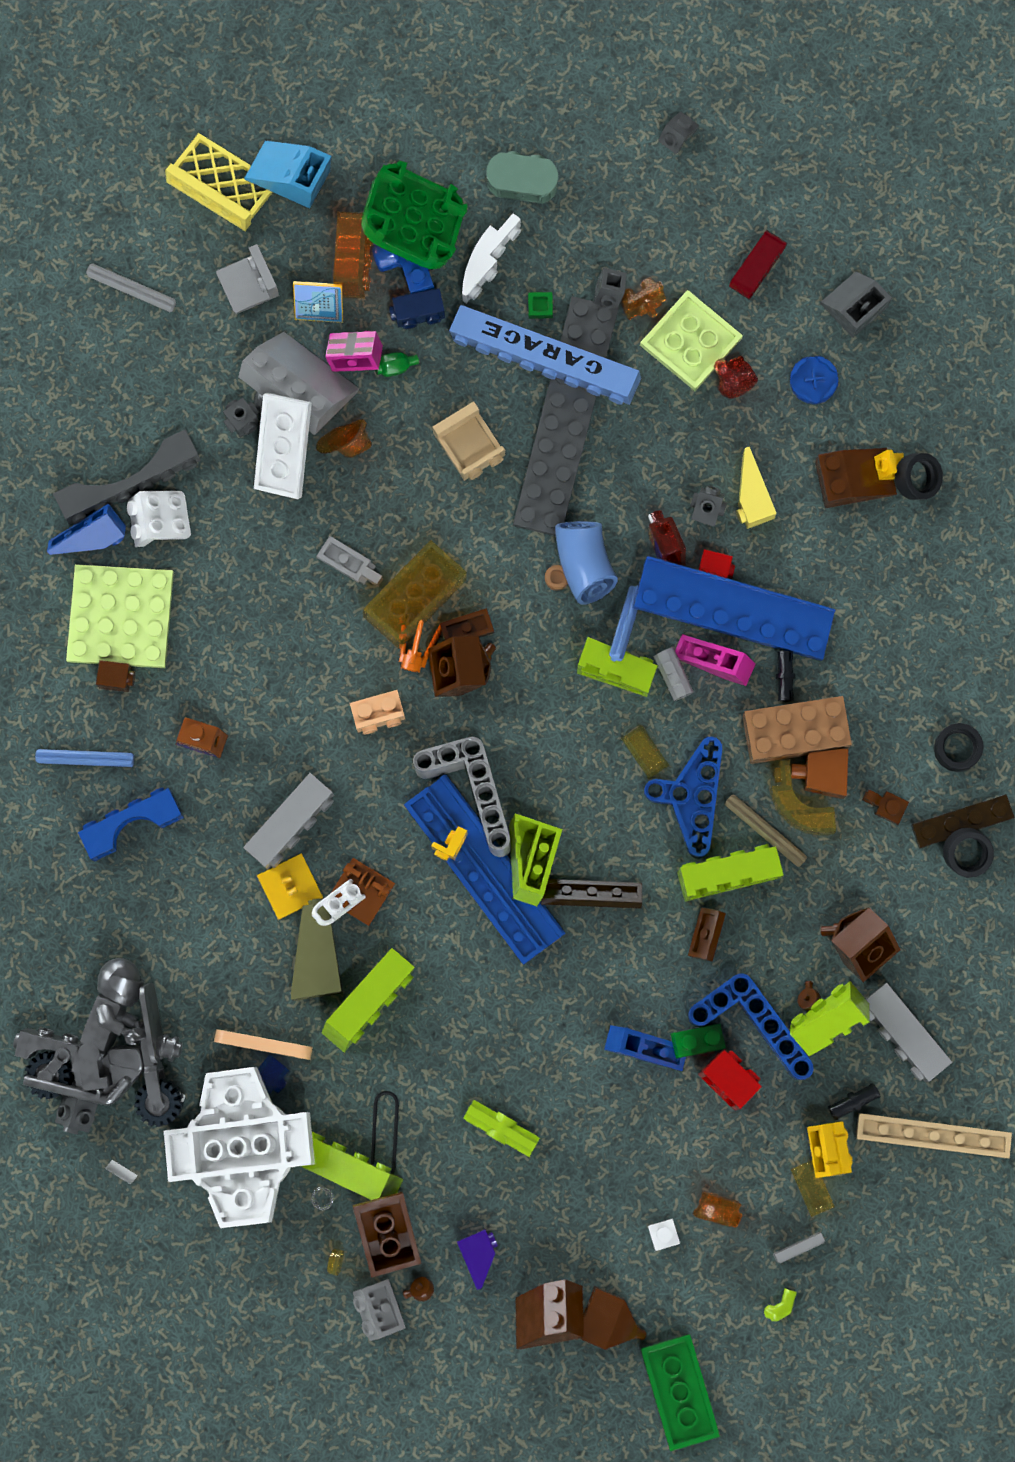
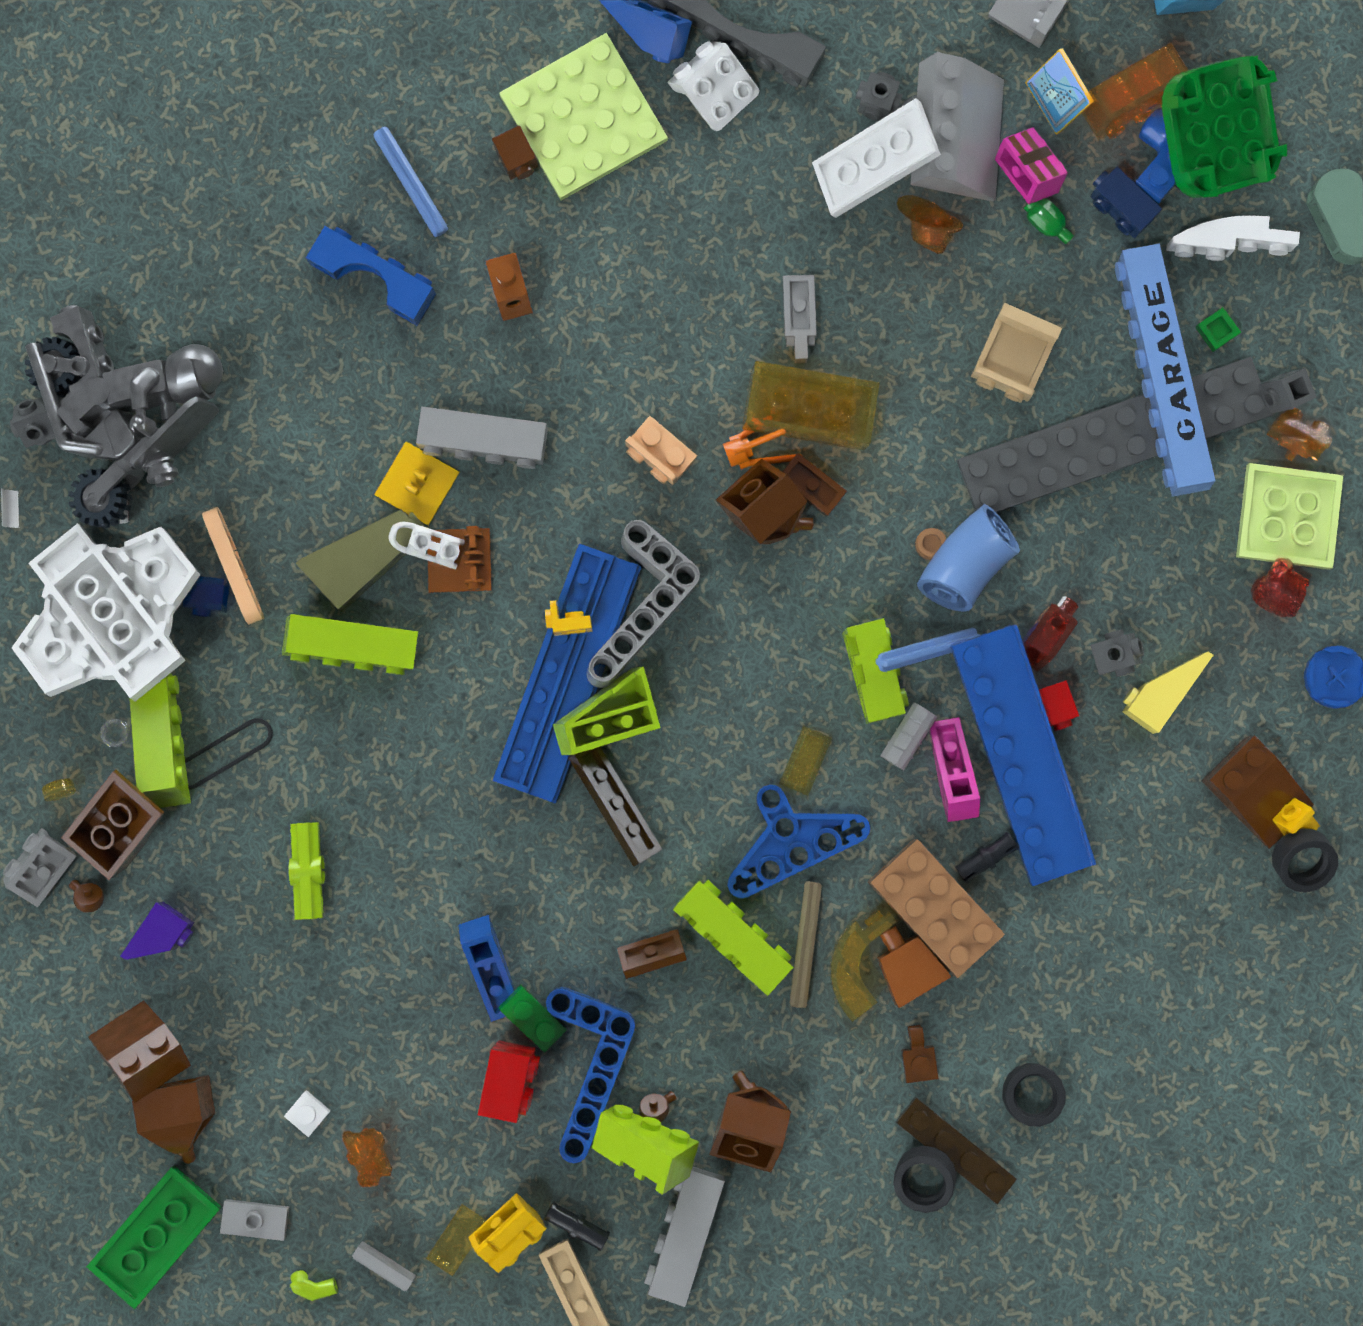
camera: 55 degrees right, 5 degrees up
(712, 1316) = (254, 1220): none -> light grey plate

